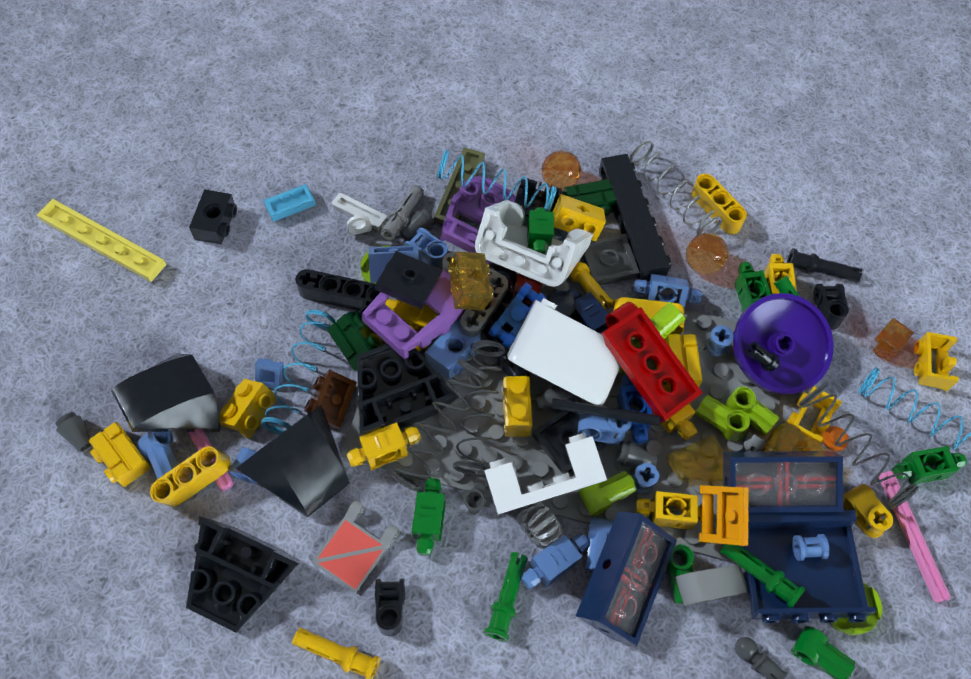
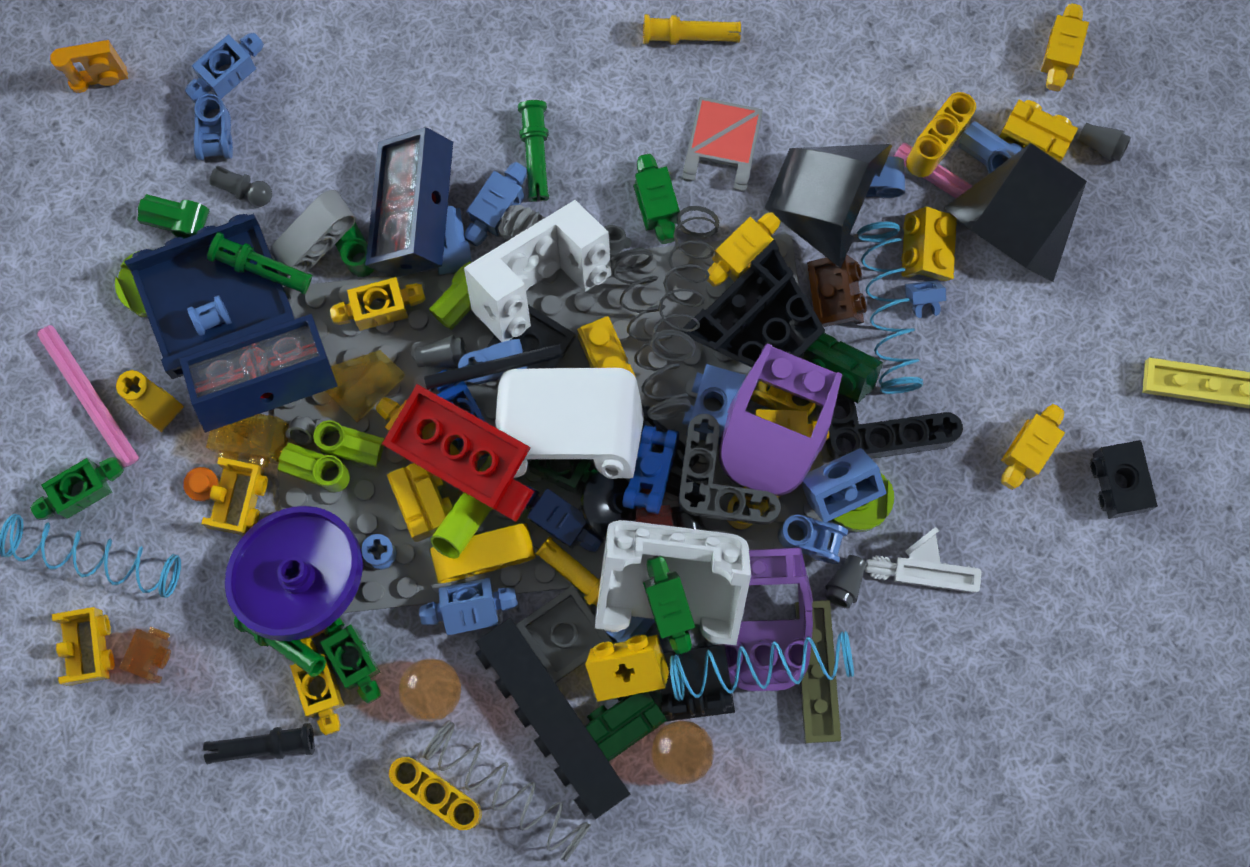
camera: 160 degrees right, 15 degrees up
(52, 514) = (1064, 47): none -> yellow piece
(234, 574) = (835, 64): black wedge -> none
(257, 255) = (1032, 447): none -> yellow piece
(289, 202) = (1037, 547): medium azure plate -> none
(389, 600) = (658, 98): black piece -> none
(399, 217) = (875, 590): light grey pin -> none
(408, 280) = (805, 437): black plate -> none
(470, 281) = (742, 479): clear yellow brick -> none
(652, 478) = (414, 323): medium blue bush -> none
(731, 515) = (310, 303): light orange plate -> none
(768, 360) = (310, 536): black pin -> none
(831, 303) = (240, 685): black piece -> none
(903, 493) = (251, 491): dark grey piece -> none

